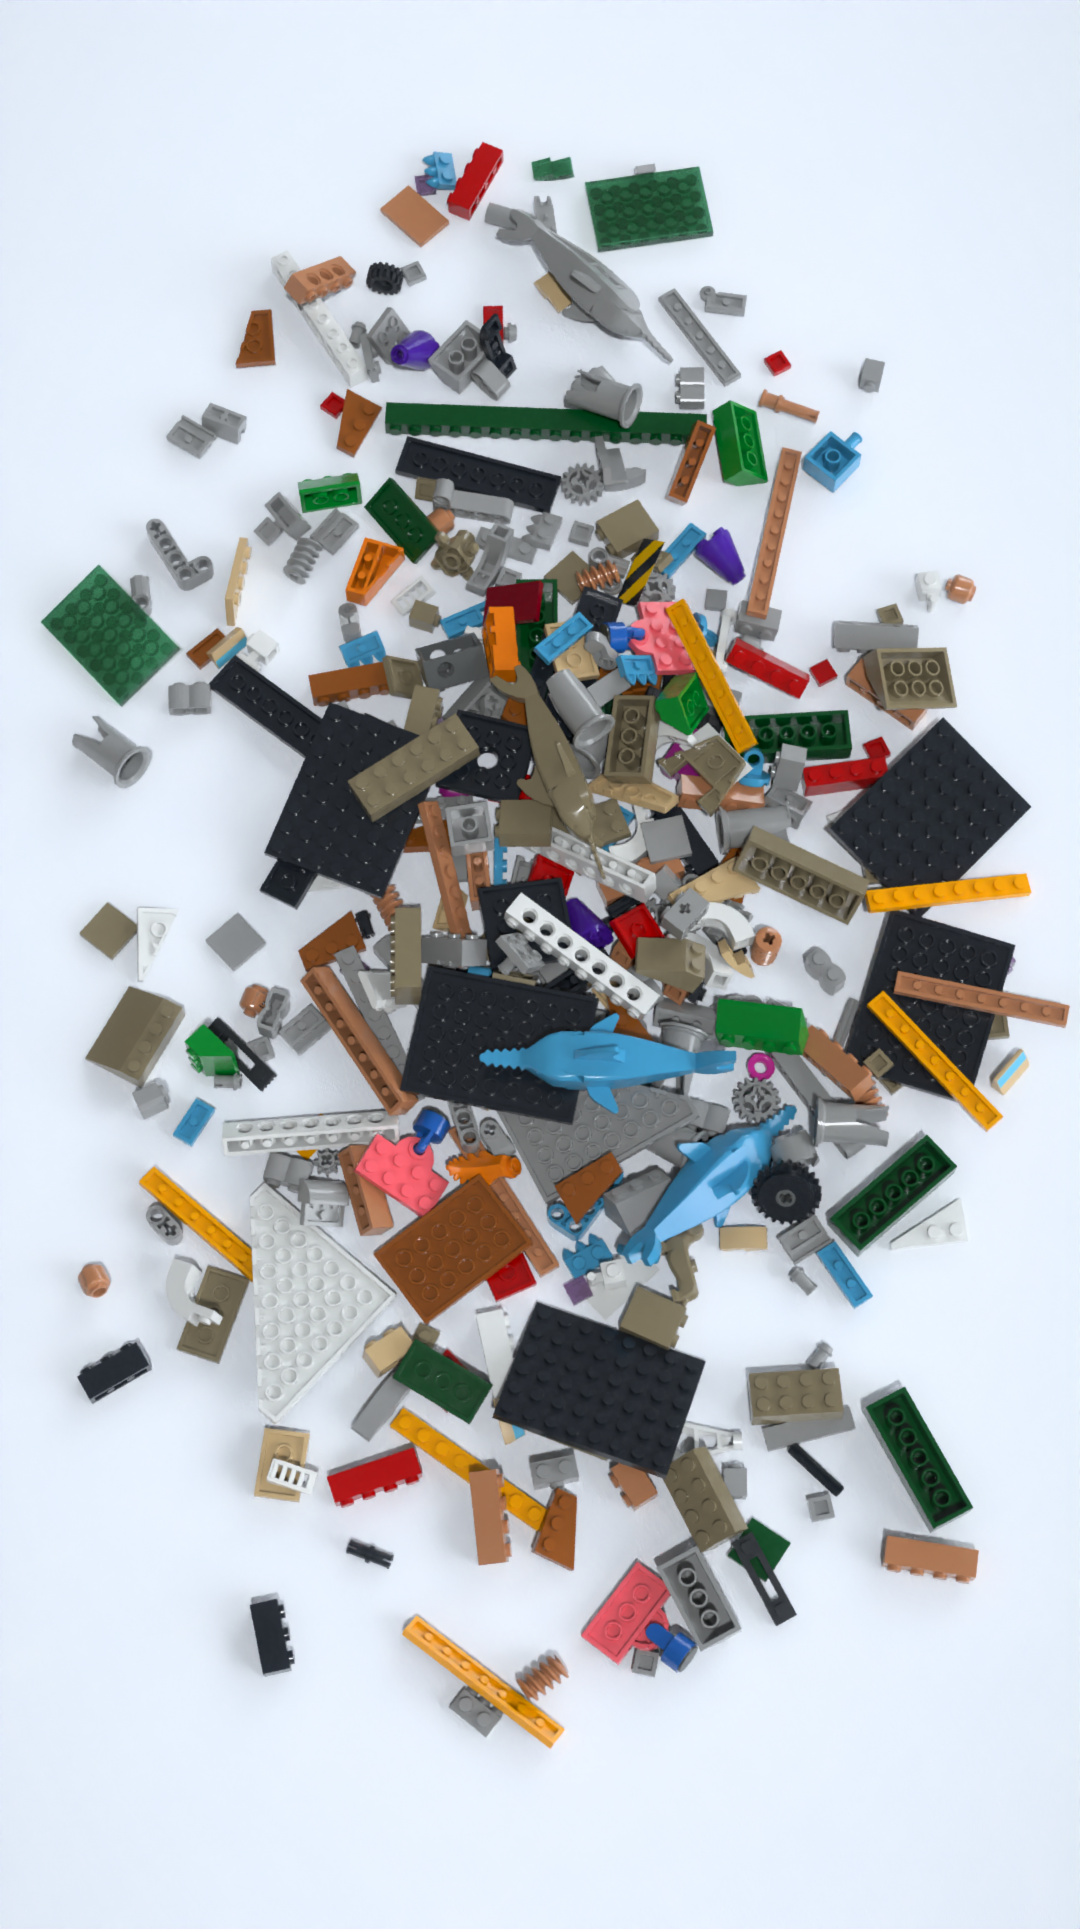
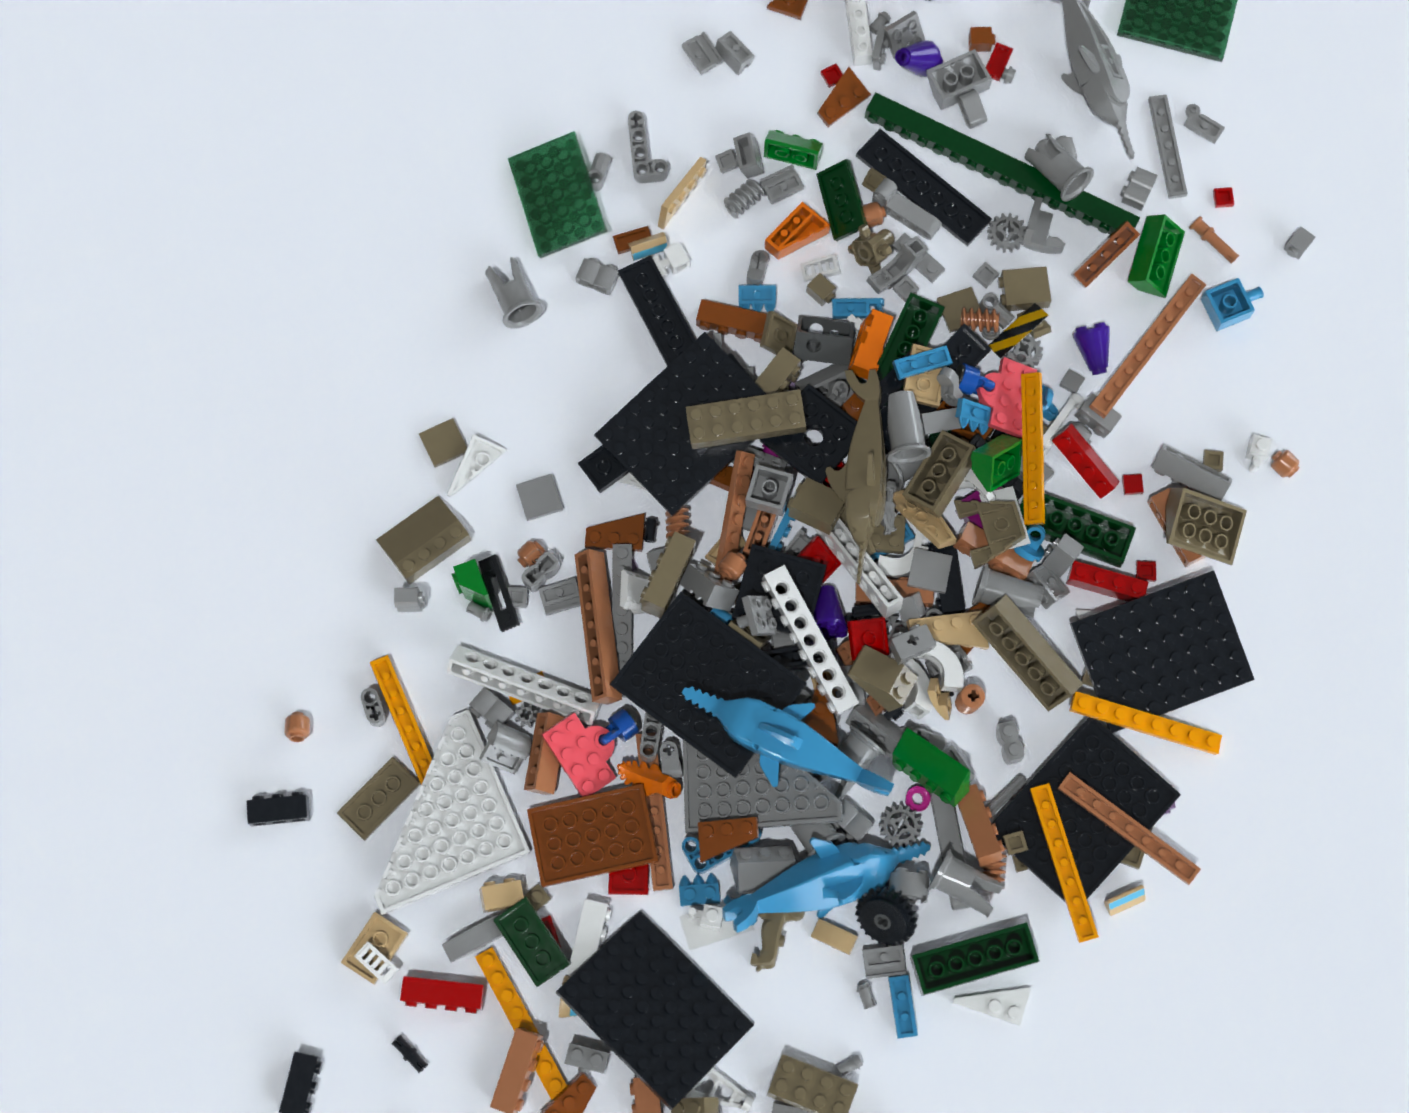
camera: 25 degrees right, 5 degrees up
(180, 1294) = (358, 771): white arch -> none
(194, 1122) = (436, 633): dark azure plate -> none
(466, 309) = (981, 39): none -> dark orange brick
(468, 919) = (732, 566): none -> nougat head
(494, 347) = (987, 84): black slope -> none
(523, 597) = (905, 310): dark red tile -> none
(543, 531) = (955, 259): light grey plate -> none
(551, 289) = (1060, 54): tan slope -> none
(578, 1290) = (678, 916): clear purple tile -> none
(601, 802) = (889, 514): none -> light grey piece
(654, 1319) = (728, 970): dark tan brick -> none
(683, 547) = (1065, 324): dark azure plate -> none

